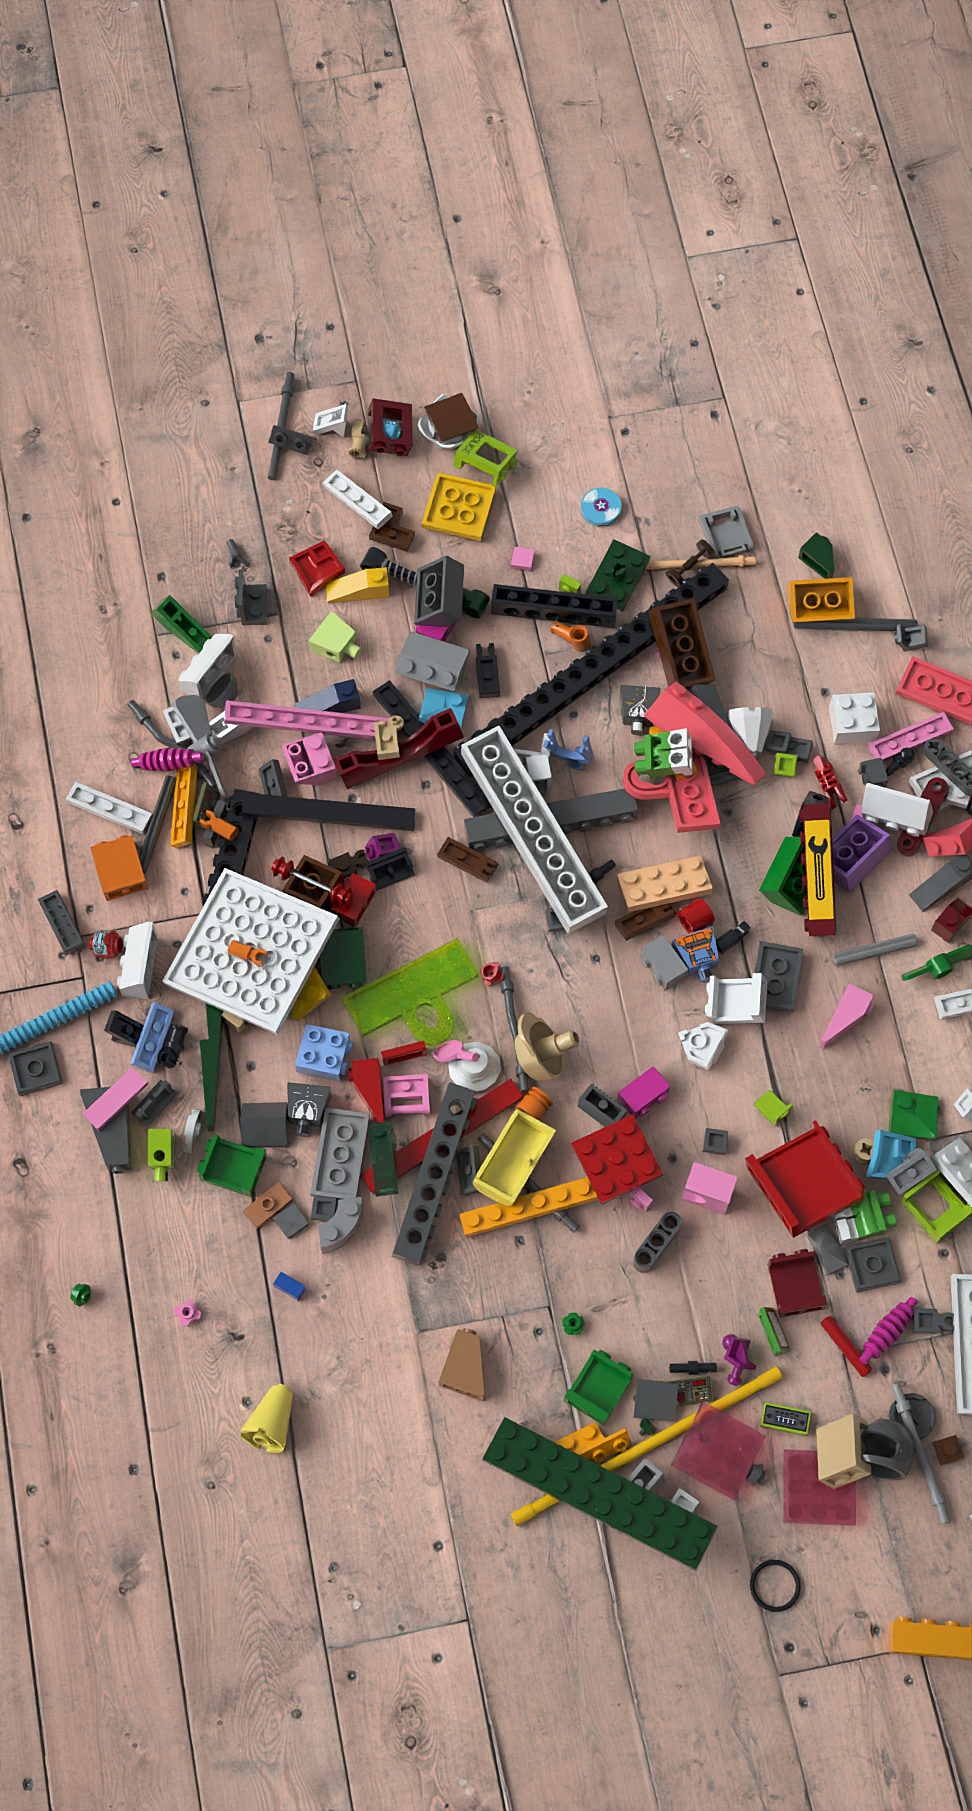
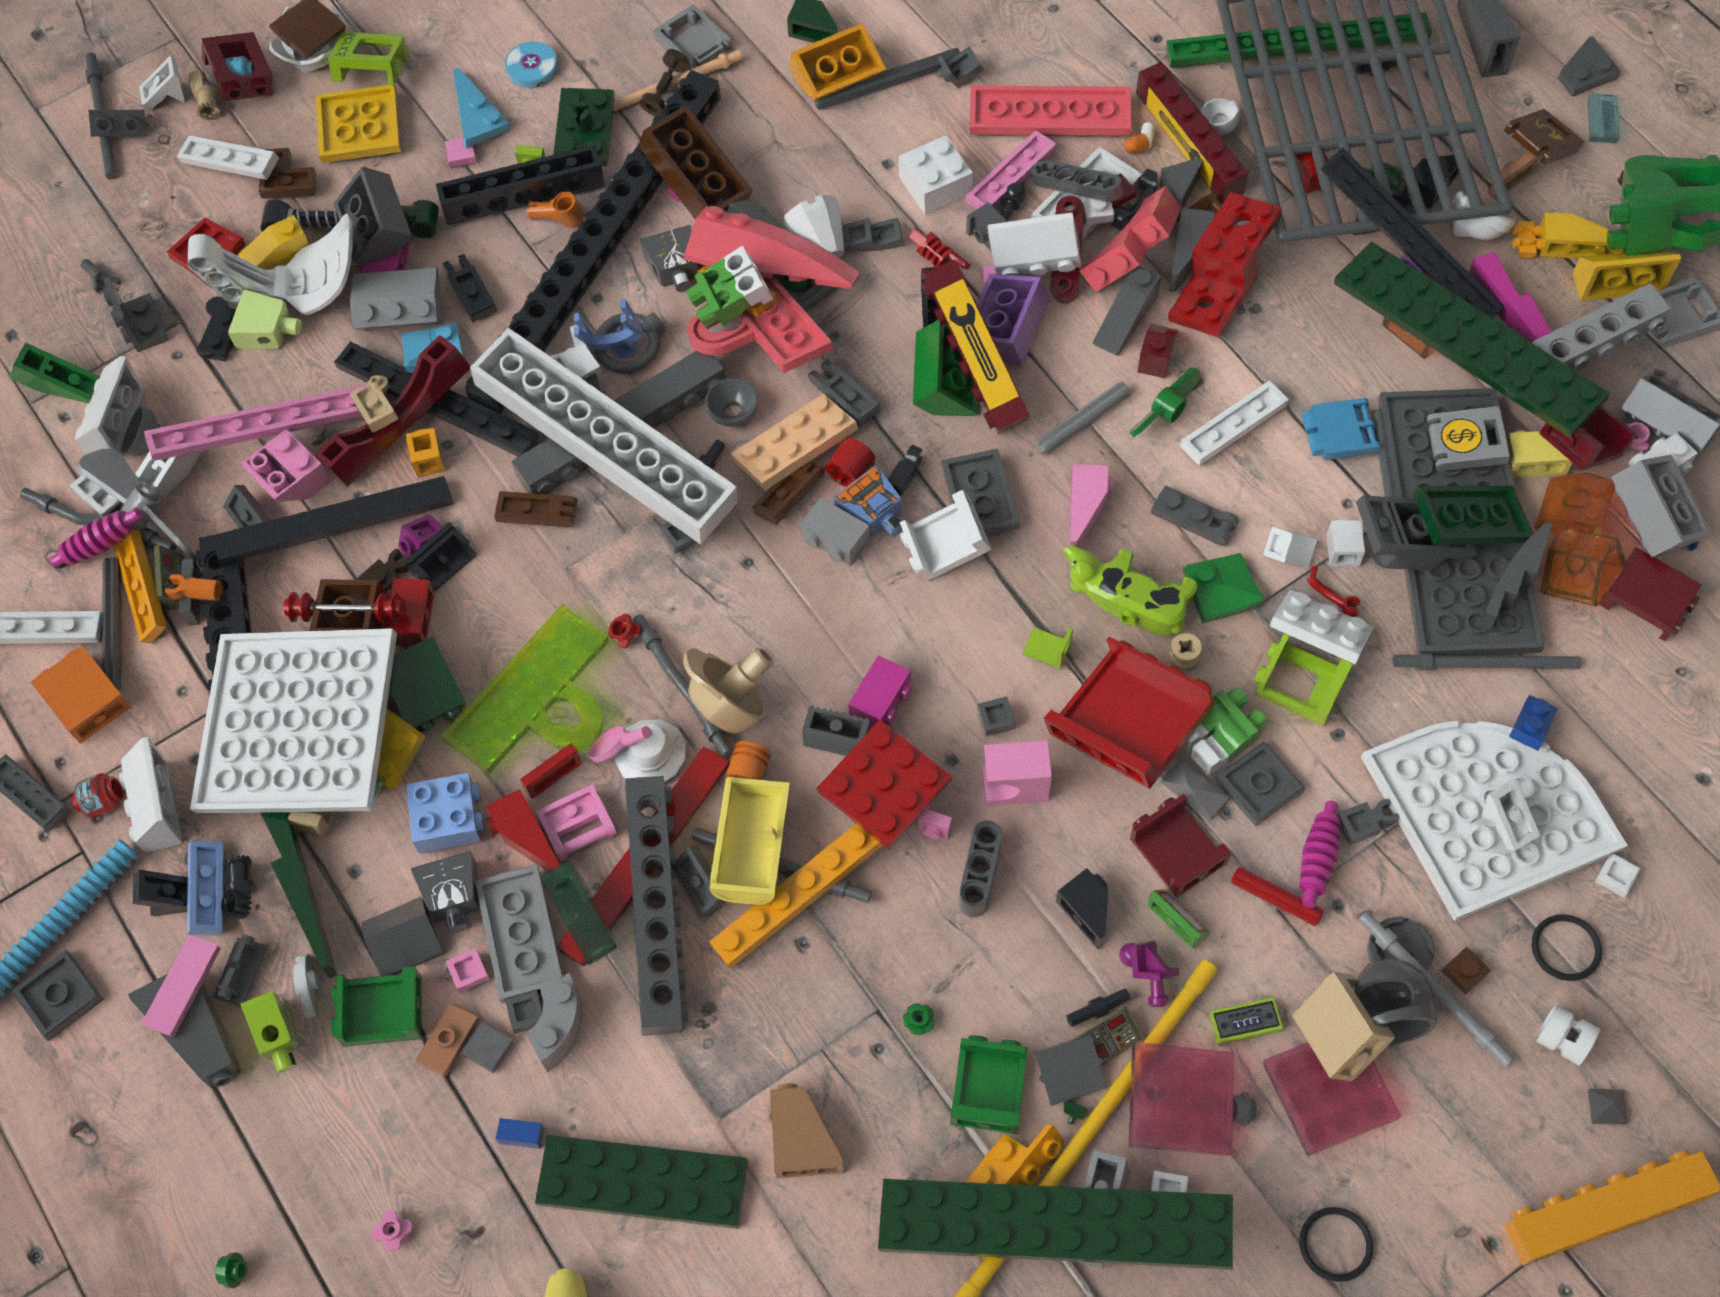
camera: 20 degrees left, 5 degrees down
(246, 952) = (289, 723): orange bar -> none
(297, 1165) = (467, 970): none -> bright pink plate
(298, 639) = (216, 341): none -> black hinge
(335, 698) = (291, 382): dark blue slope -> none
(353, 1350) = (642, 1181): none -> dark green plate
(379, 621) = (306, 282): none -> white piece
(409, 793) = (425, 452): none -> light orange brick
(546, 534) = (477, 114): none -> medium azure wing
(602, 755) = (652, 328): none -> dark grey piece
(633, 827) = (728, 393): none -> dark grey piece
(704, 1044) = (928, 606): white plate -> none
(716, 862) = (845, 393): none -> dark grey hinge
(716, 1296) = (1086, 904): none -> black slope
(785, 764) = (878, 255): lime tile -> none
(845, 1095) = (1129, 594): none -> lime animal
(888, 1153) = (1223, 644): medium azure plate -> none
(913, 1170) = (1257, 643): light grey plate -> none
(919, 1055) = (1194, 516): none -> dark grey plate

